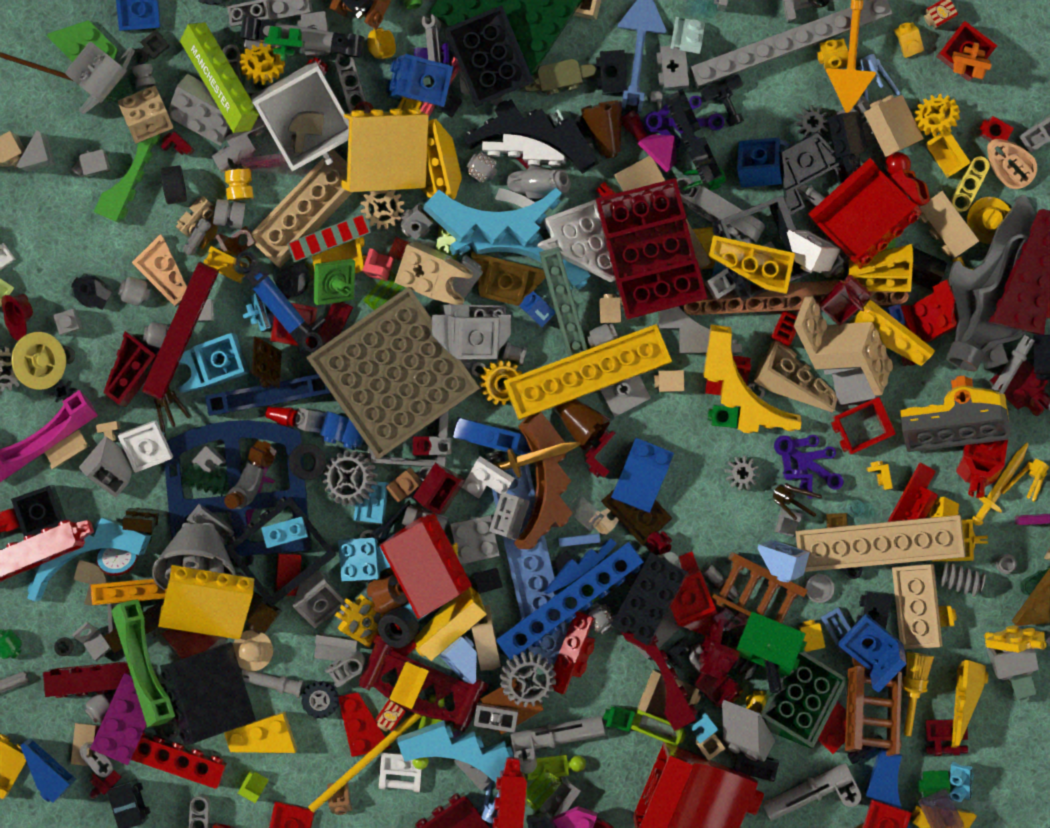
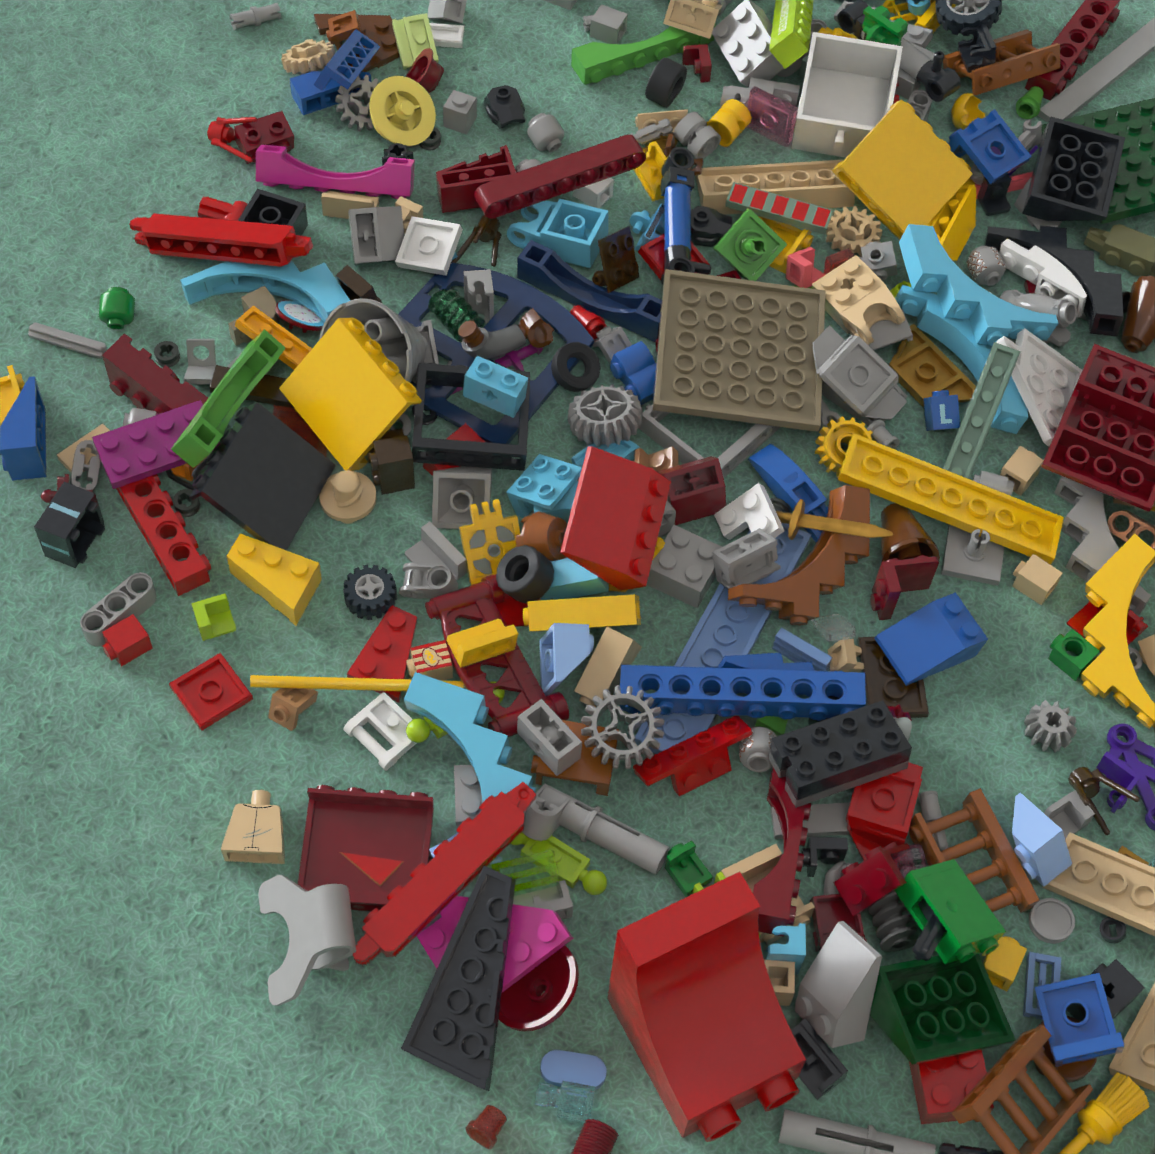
camera: 30 degrees right, 30 degrees down
(161, 270) = (588, 127): light nougat wing -> none
(281, 684) = (344, 547): light grey pin -> none
(305, 122) = (841, 109): dark tan brick -> none
(431, 446) = (720, 437): leg -> none
(488, 580) = (663, 615): black panel -> none

